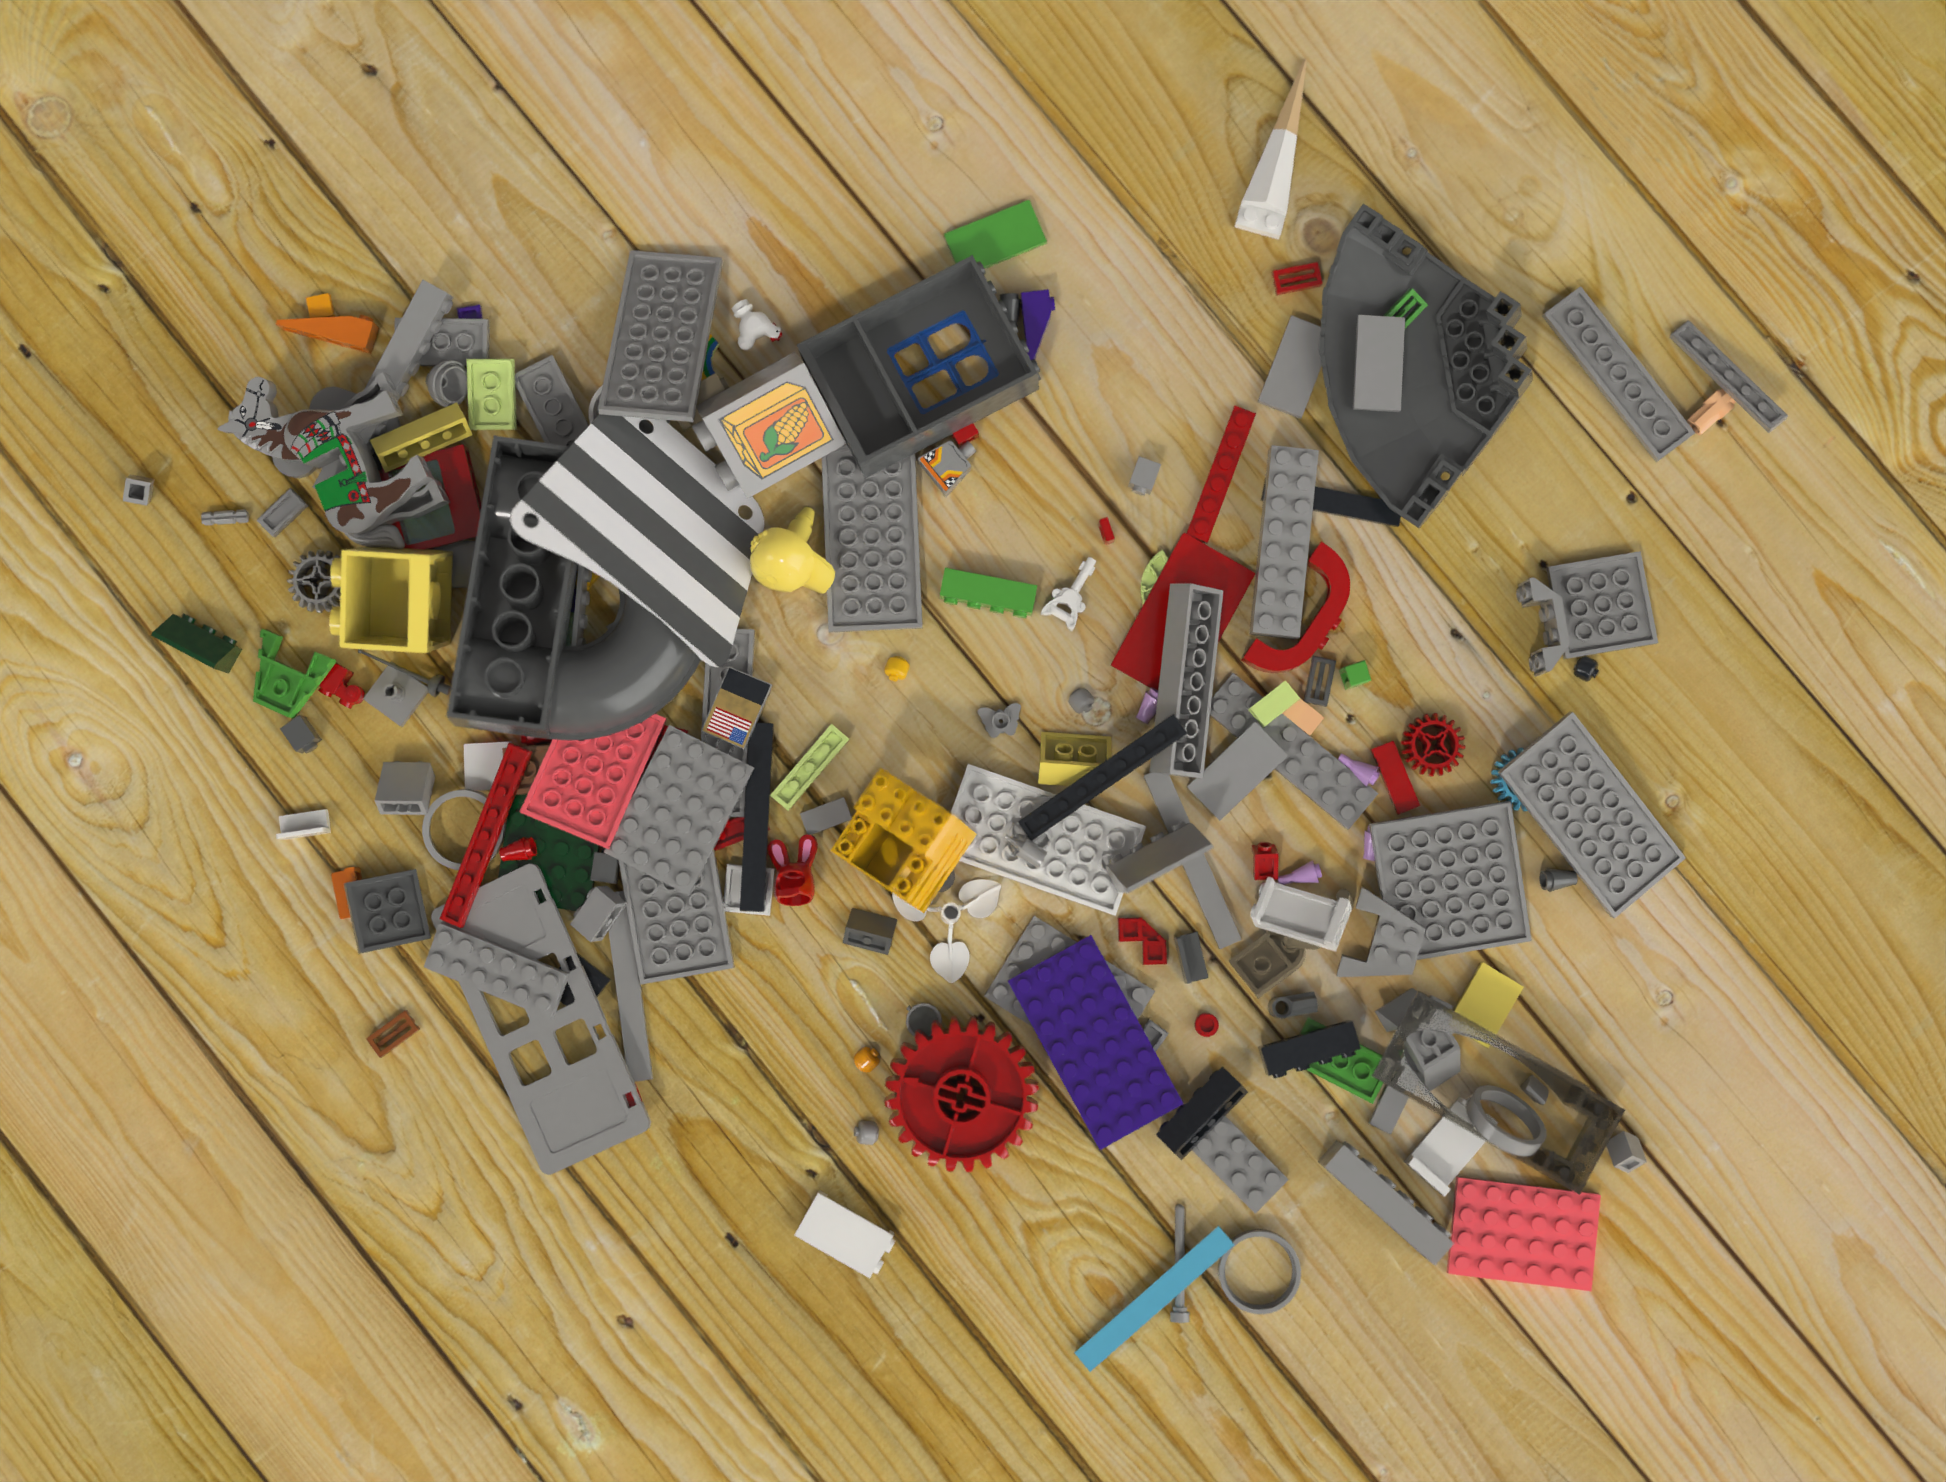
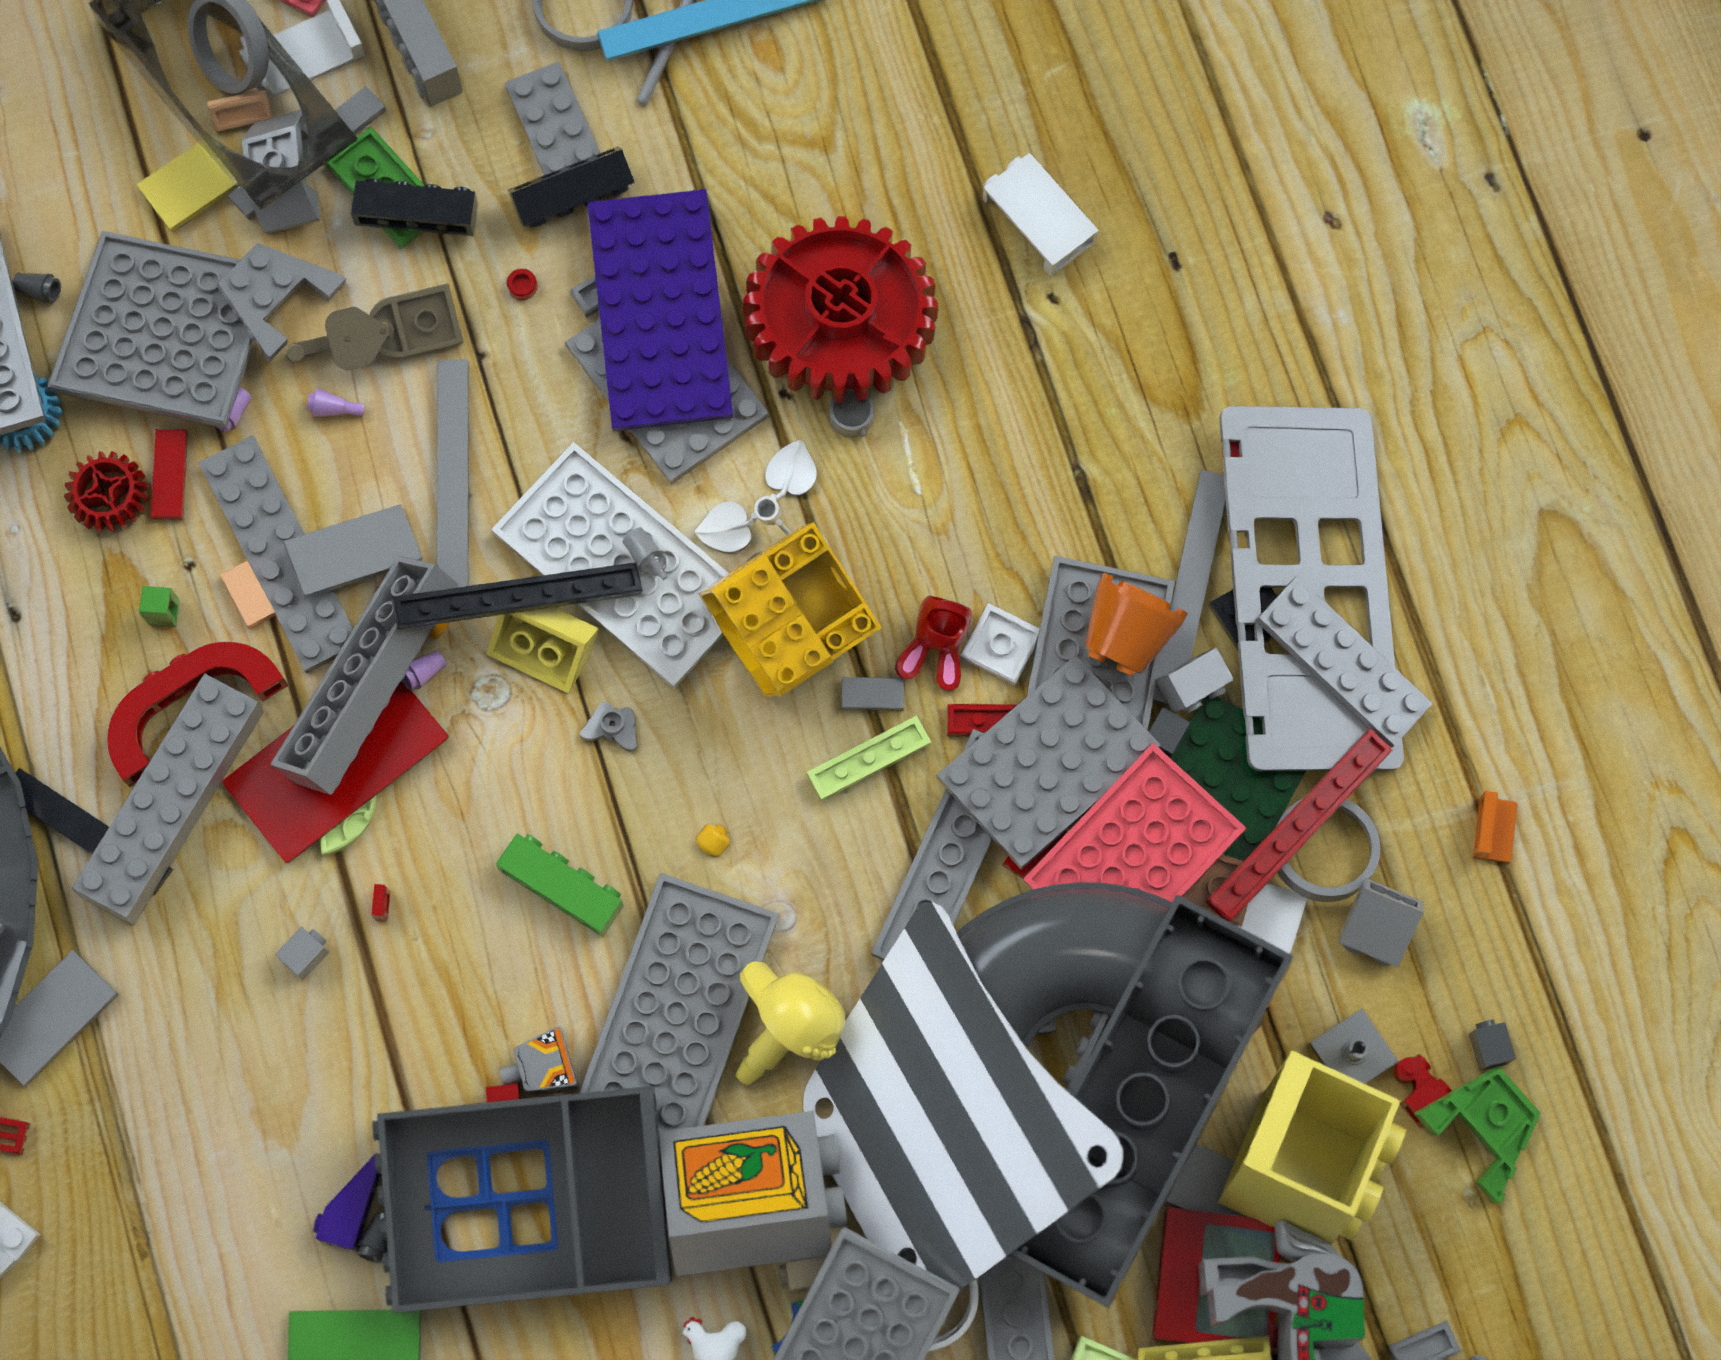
camera: 160 degrees left, 10 degrees down
(198, 642) = (1587, 1212): dark green slope -> none
(304, 824) = (1525, 932): white panel -> none
(320, 591) = (1418, 1239): light grey gear -> none
(387, 911) = (1454, 782): dark grey plate -> none
(410, 1022) = (1471, 648): dark orange tile -> none
(435, 684) = (1300, 1042): dark grey sword -> none
(519, 850) = (1263, 791): red cone -> none
(655, 929) = (1129, 625): none -> orange cone
(736, 708) = (930, 860): tile -> none
(757, 819) = (957, 721): black tile -> none
(866, 1059) = (937, 397): light orange piece -> none
(866, 1132) = (970, 317): light grey piece -> none
(869, 931) = (873, 539): dark grey panel -> none
(1070, 597) = (461, 839): white piece -> none
(1081, 700) = (503, 711): light grey piece -> none
(1153, 944) = (553, 418): red tile -> none
(1157, 857) = (492, 475): light grey slope -> none
(1191, 957) = (506, 364): dark grey panel -> none
(1221, 474) = (206, 920): red plate -> none
(1265, 861) = (368, 437): red bracket -> none
(1274, 704) = (272, 609): yellowish green tile -> none
(1295, 1005) = (409, 265): dark grey piece -> none
(1300, 914) = (354, 354): white panel -> none
(1315, 700) = (196, 613): dark grey tile -> none
(1364, 772) = (201, 491): lavender cone -> none
(1474, 1076) = (240, 110): none -> light nougat tile
(1535, 1090) = (178, 71): light grey slope -> none

